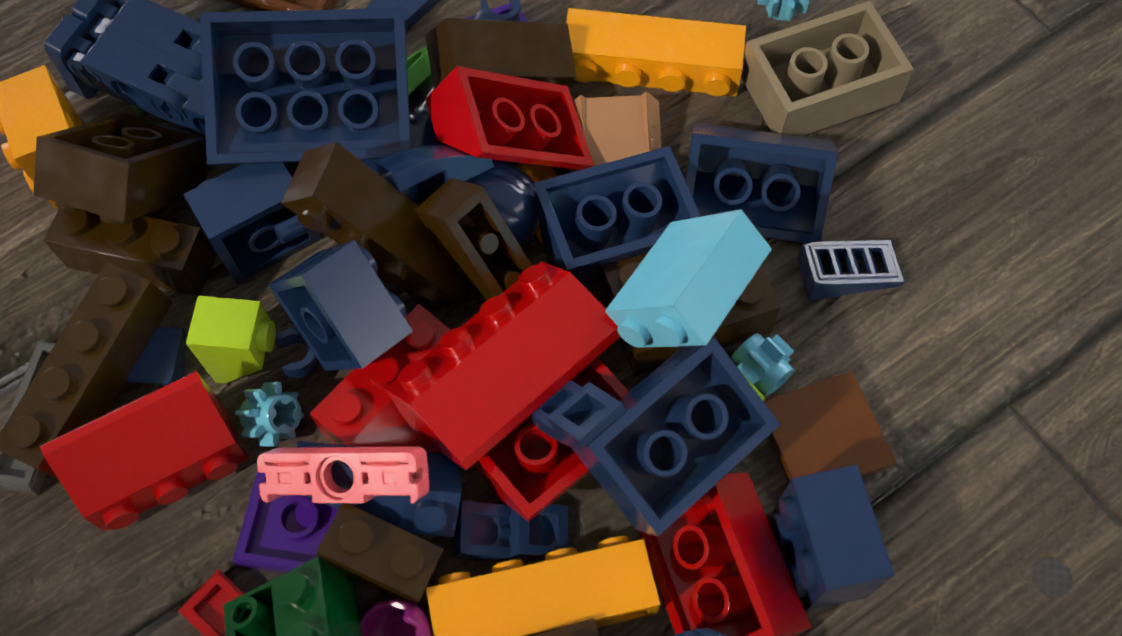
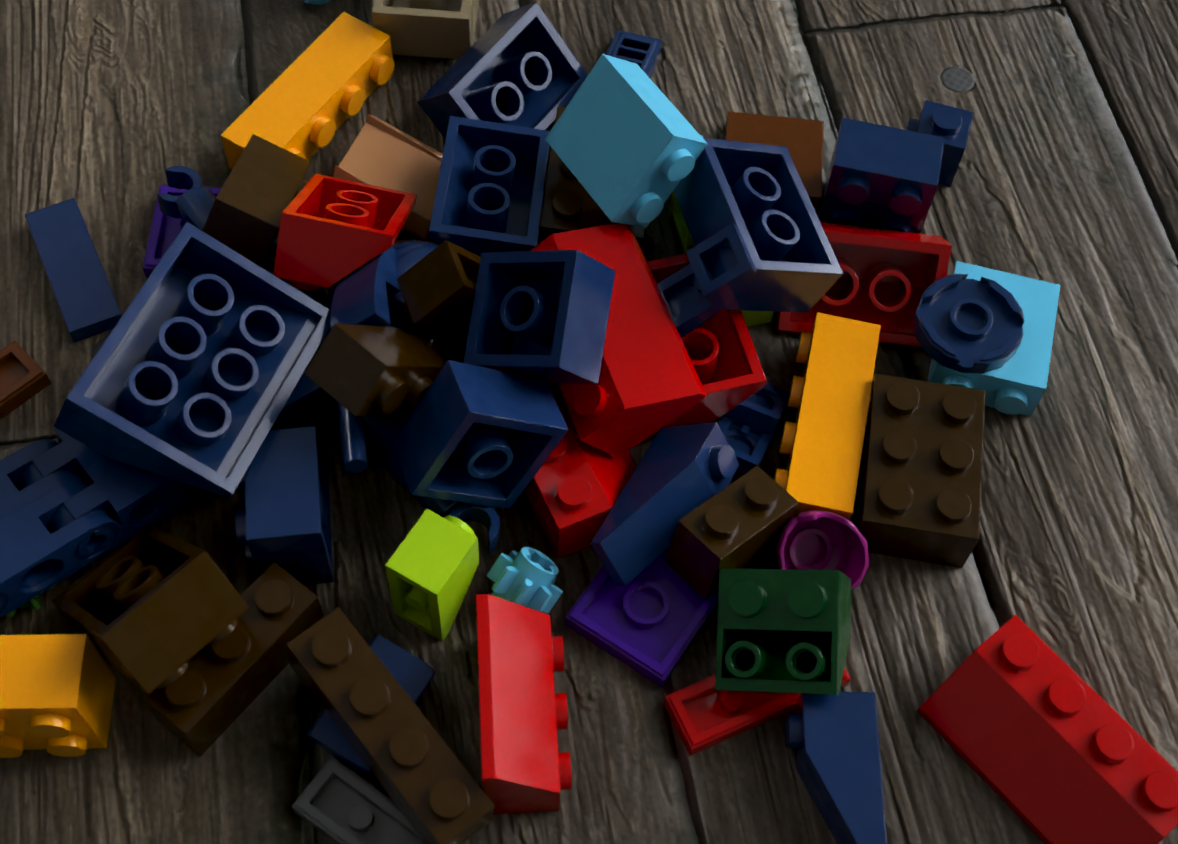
camera: 70 degrees left, 5 degrees down
(375, 472) = (632, 536): coral piece -> none
(451, 296) = (541, 315): none -> dark blue brick
(933, 580) = (948, 123): none -> dark blue brick

